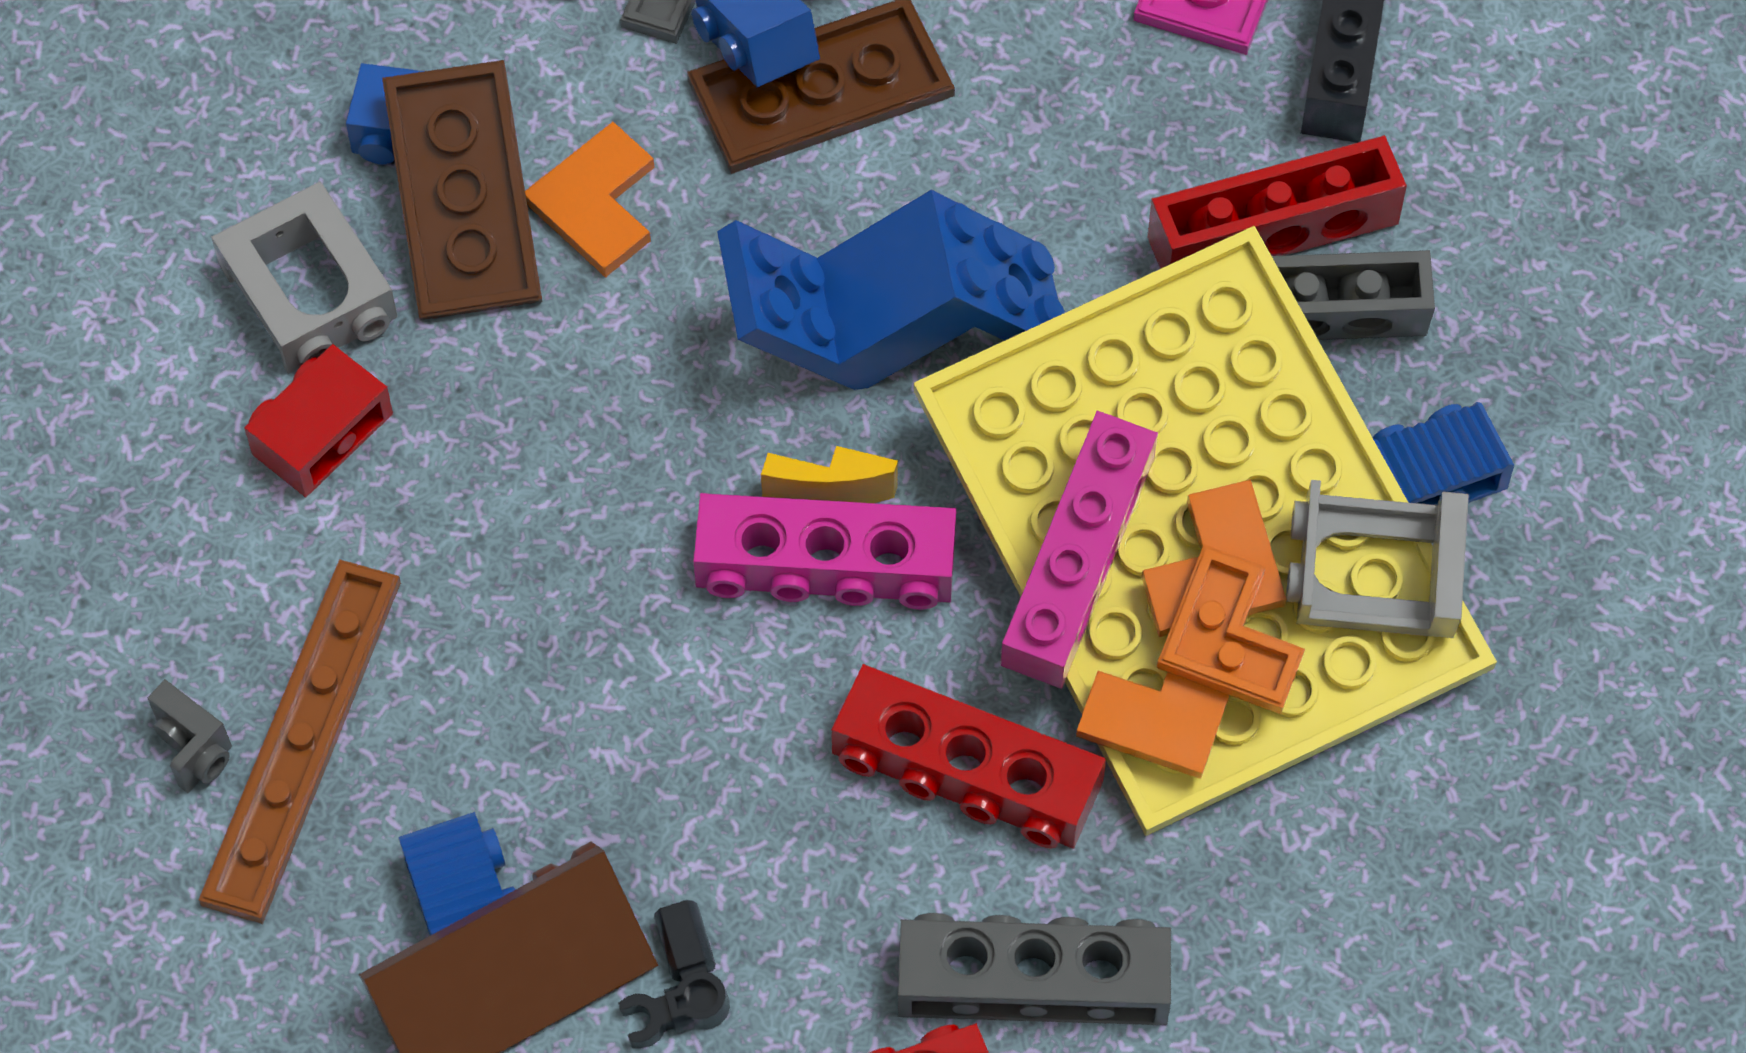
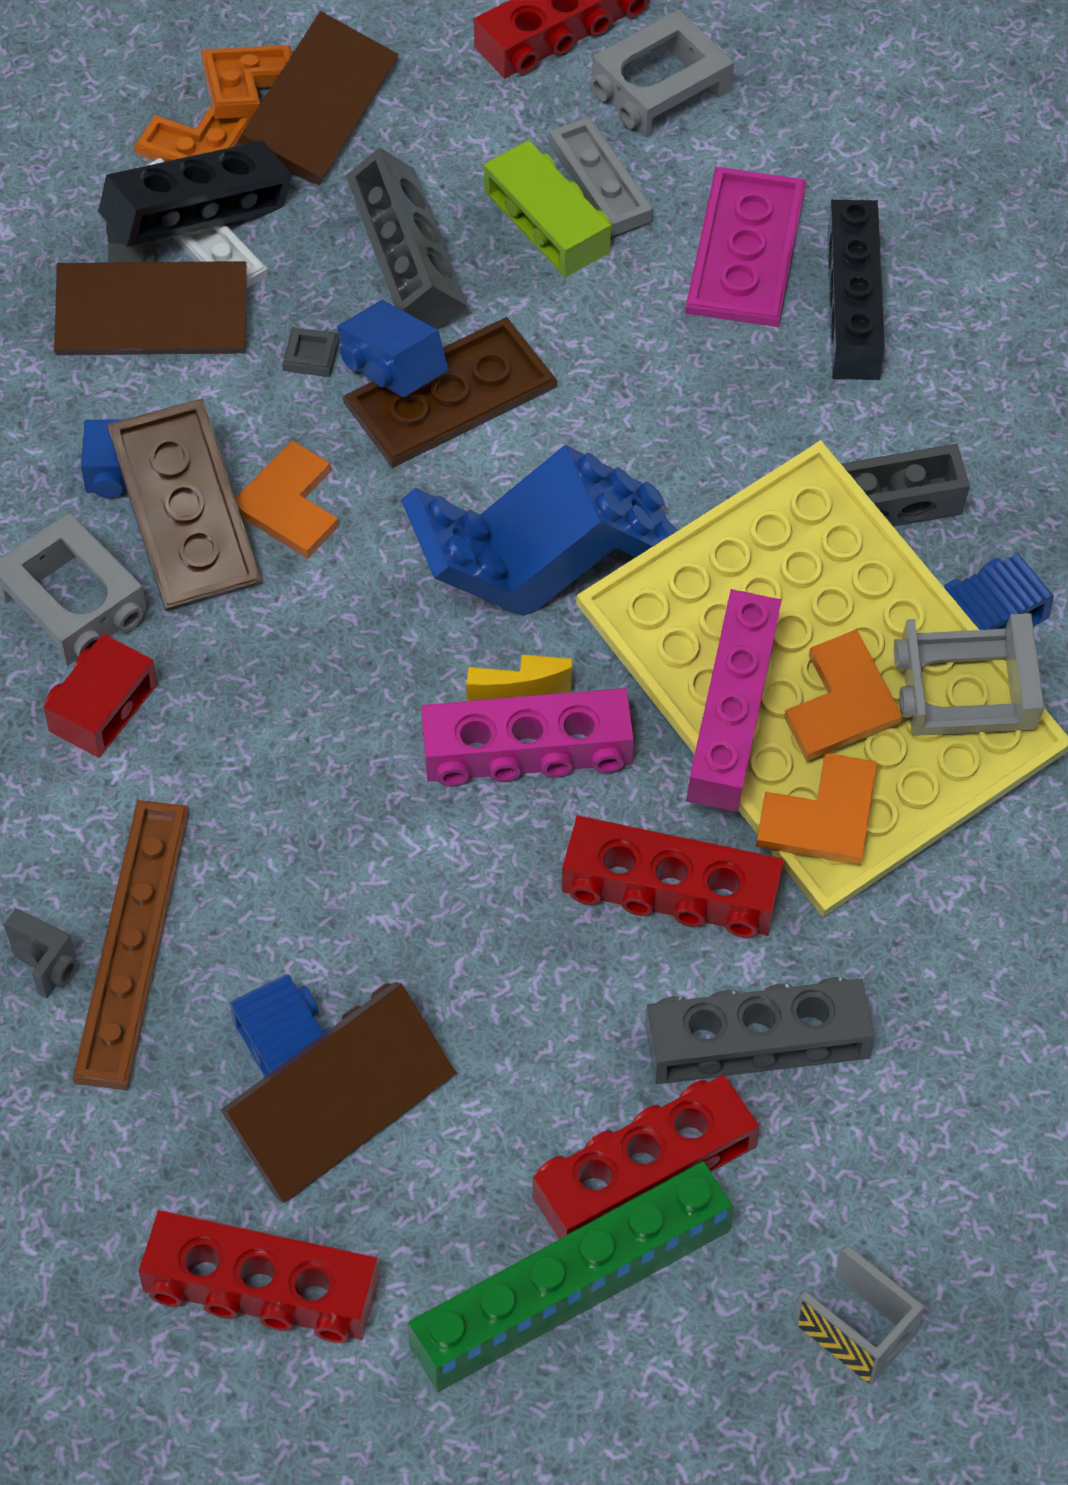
camera: 10 degrees left, 5 degrees down
(699, 998) = (495, 1090): black bar -> none
(1213, 644) = (855, 760): orange tile -> none
(1289, 203) = (849, 422): red brick -> none

